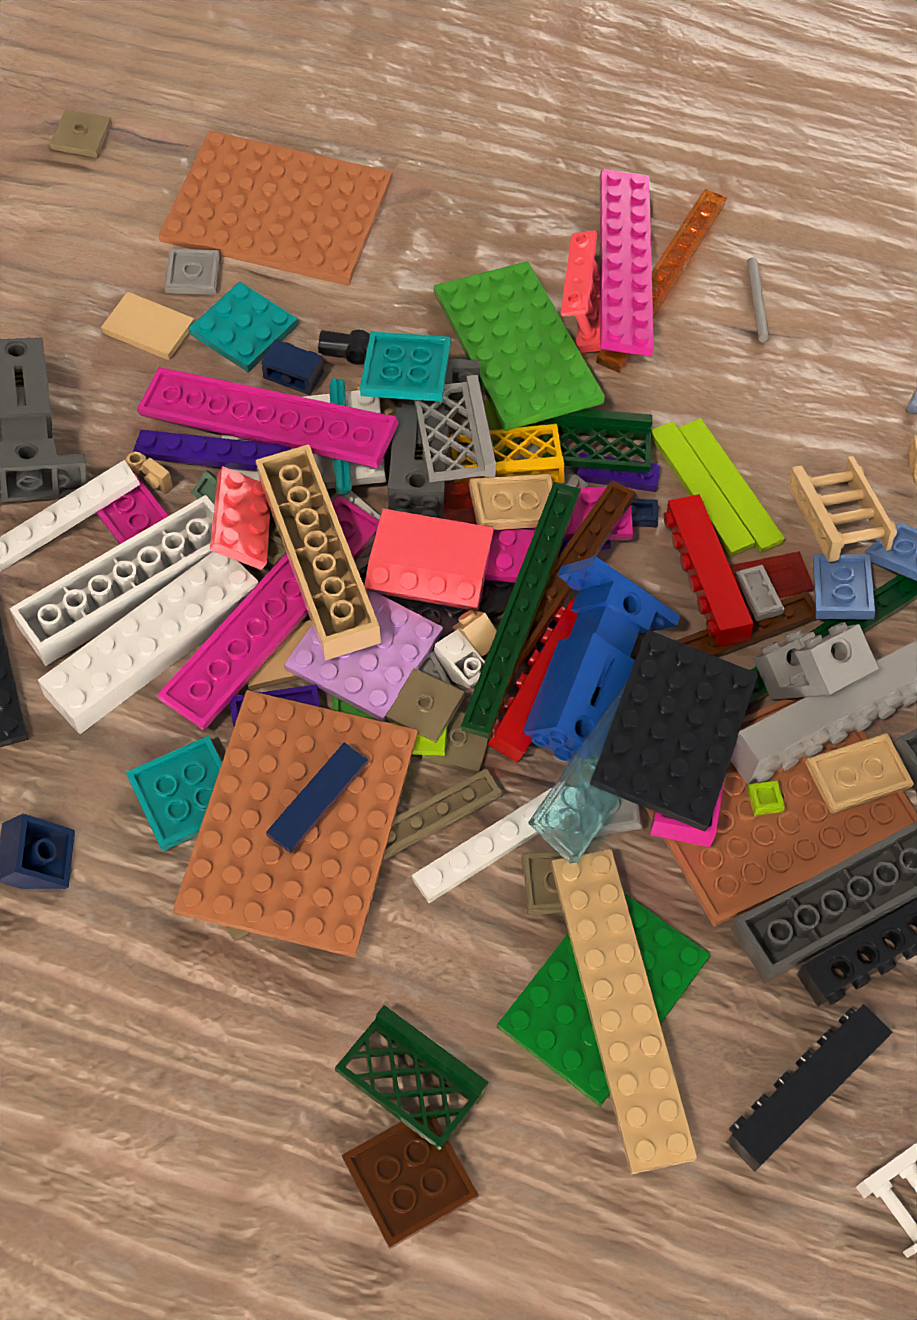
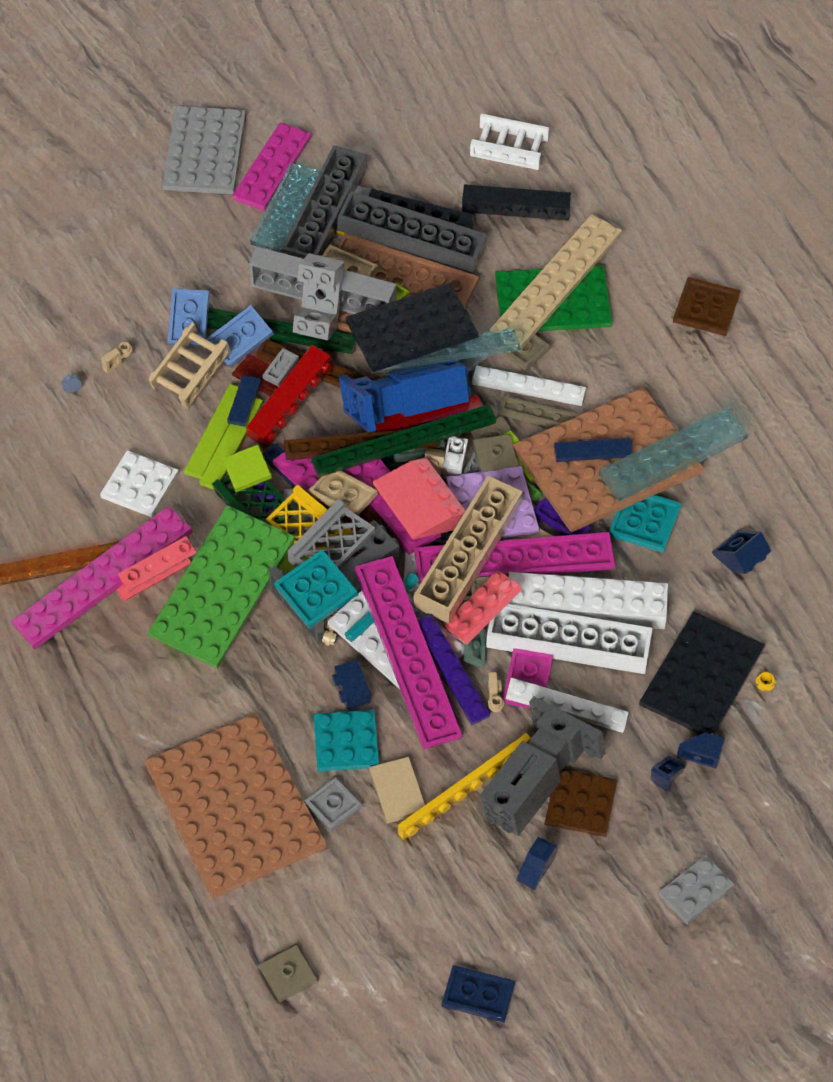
camera: 130 degrees left, 5 degrees down
(85, 363) = (458, 791): none -> yellow plate
(219, 888) = (673, 454): none -> clear light blue plate
(351, 346) = (303, 665): black piece -> none
(434, 1061) = (654, 331): dark green fence -> none
(639, 453) = (247, 468): none -> lime tile
(722, 376) = (139, 483): none -> white plate
(744, 528) = (244, 401): none -> dark blue tile
(758, 299) = (60, 504): light grey bar -> none

